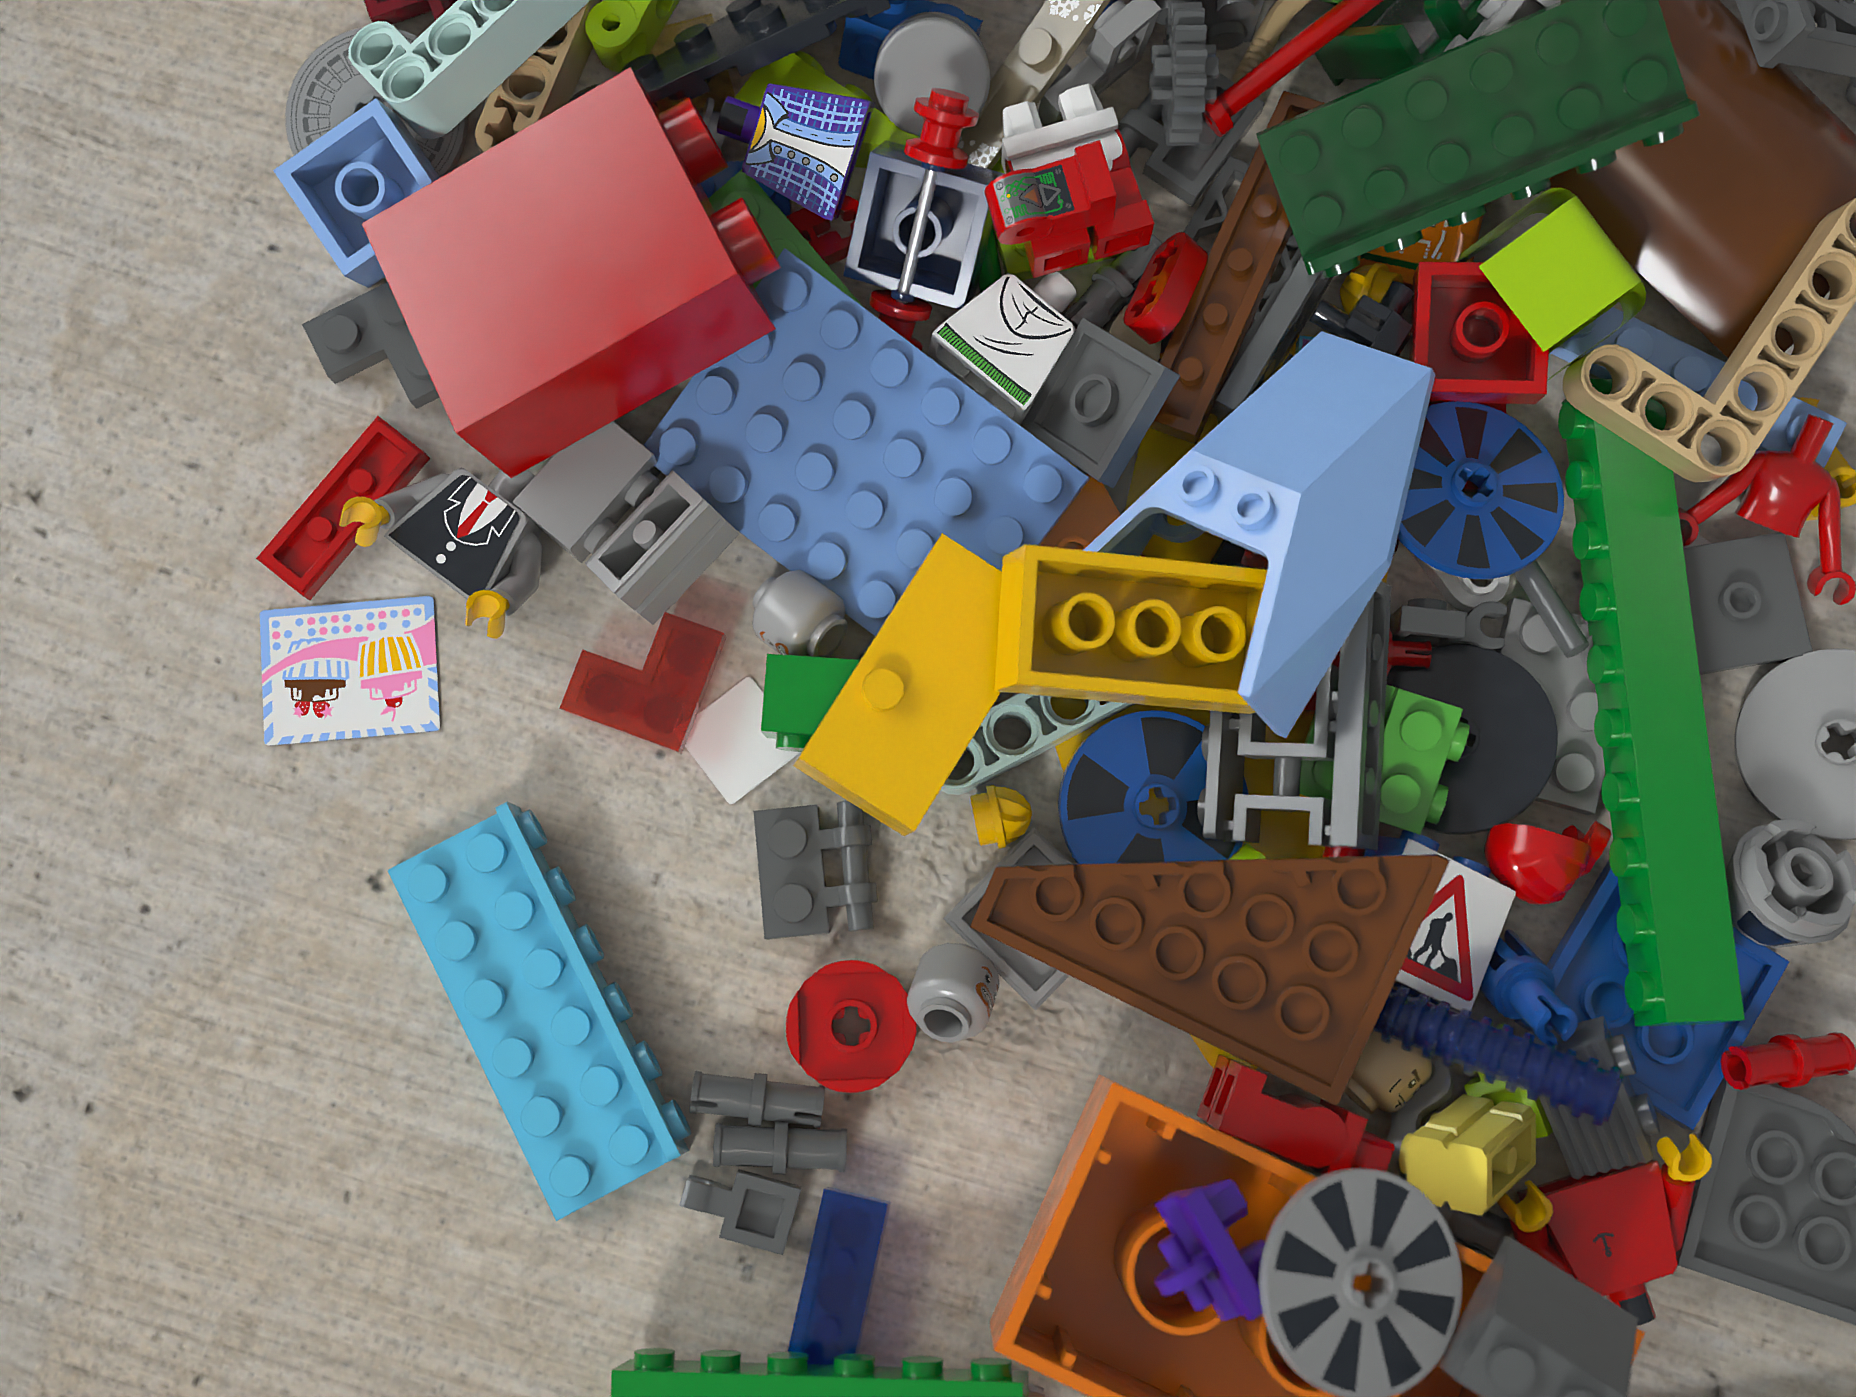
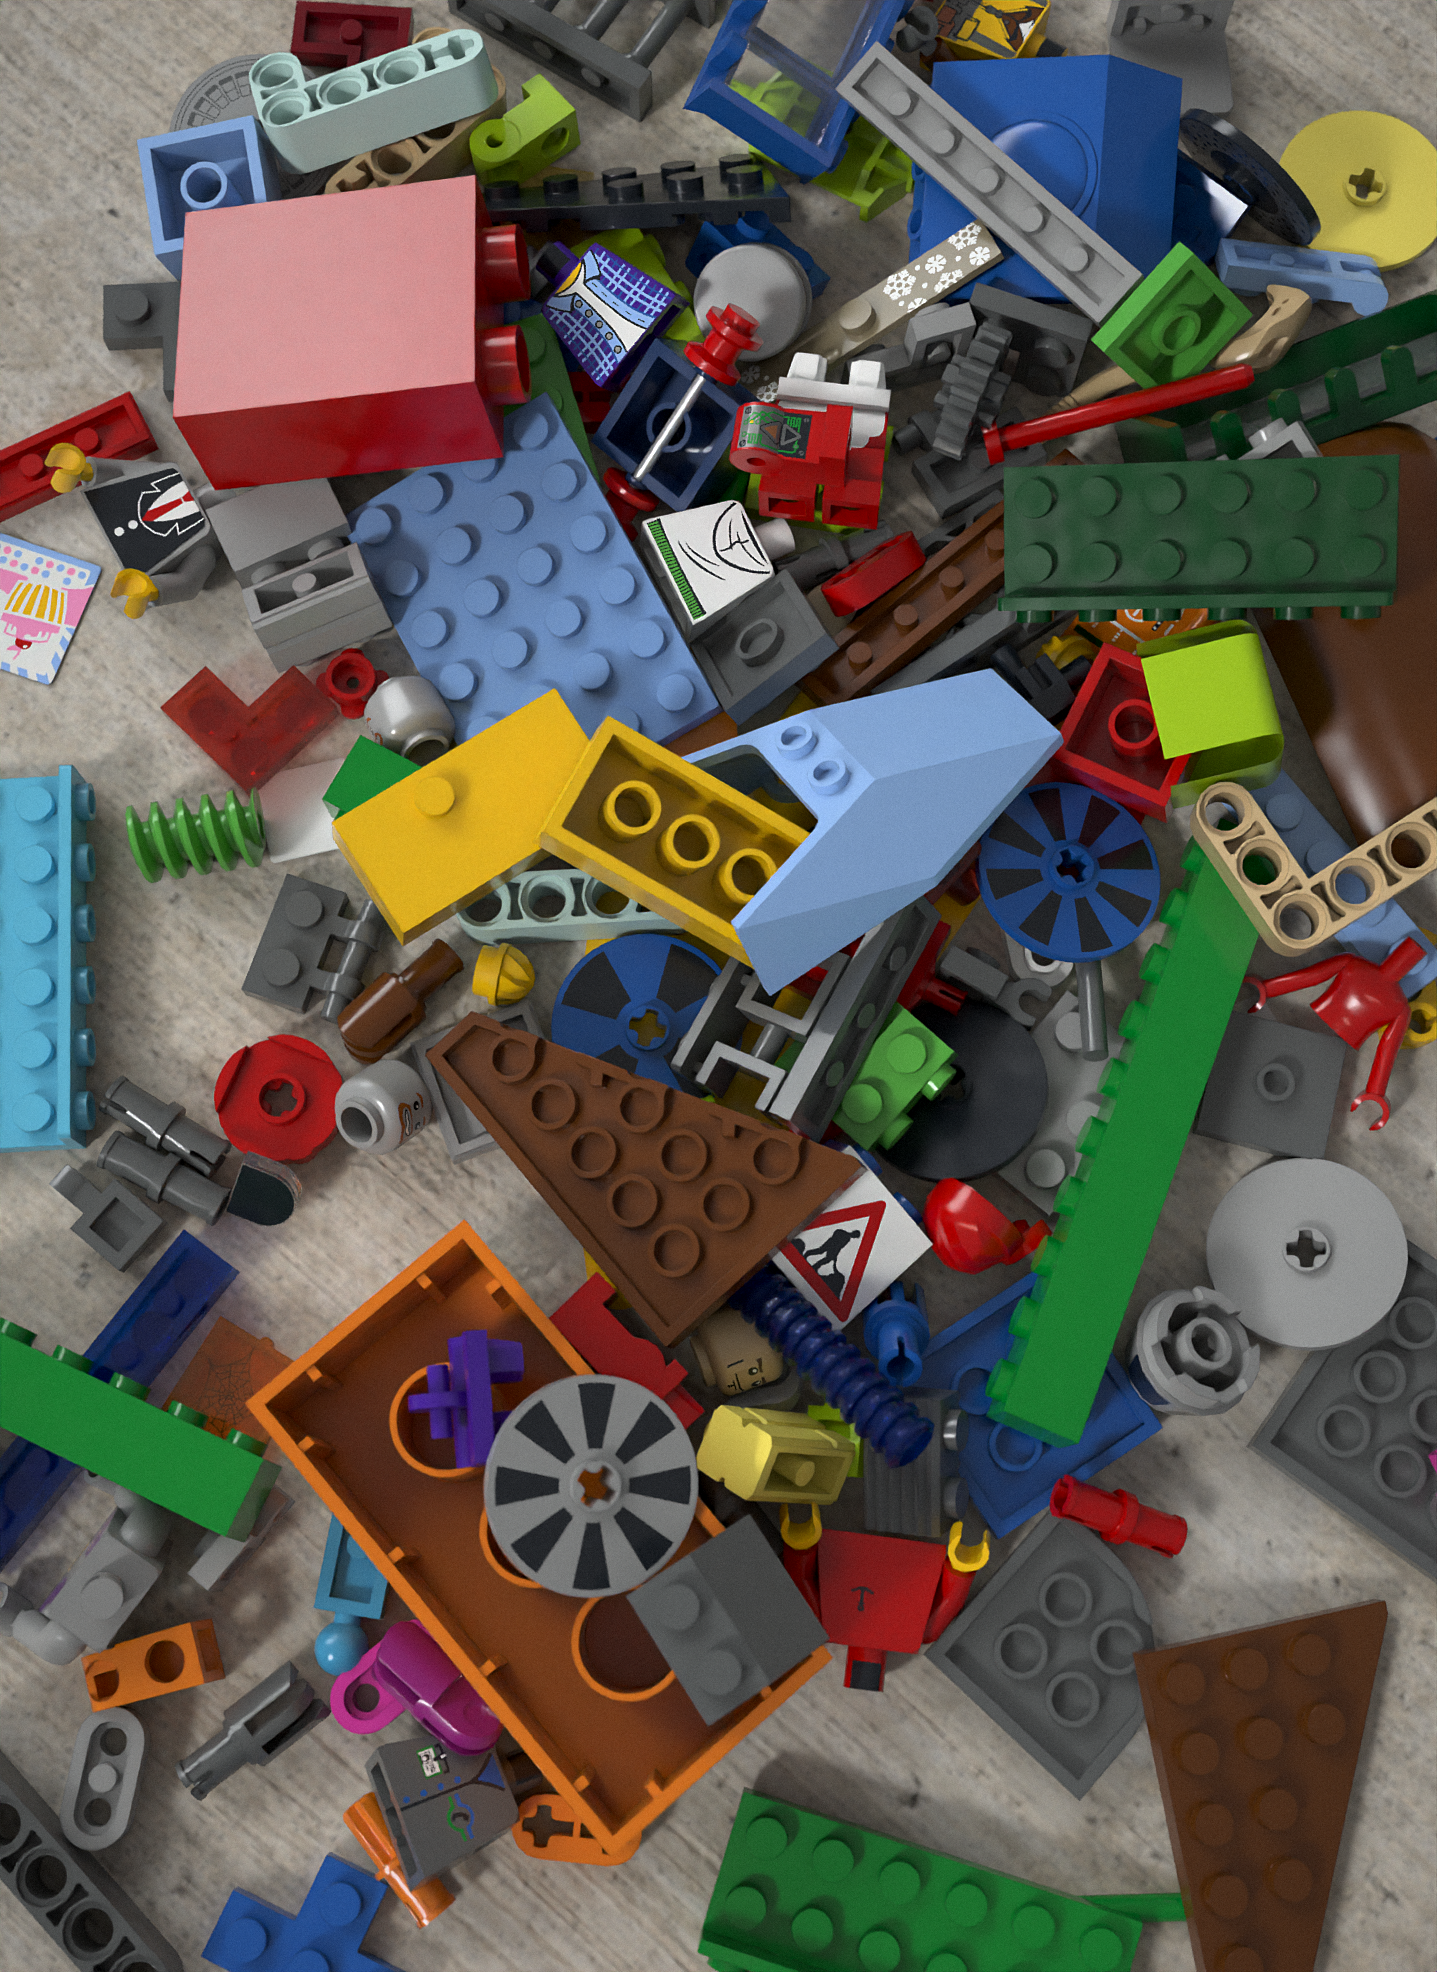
camera: 20 degrees right, 5 degrees down
(654, 815) = (197, 836): none -> bright green piece
(718, 586) = (343, 668): none -> red plate
(879, 1119) = (264, 1192): none -> black tile
(914, 888) = (395, 1004): none -> reddish brown arm
(938, 1307) = (226, 1375): none -> clear orange piece

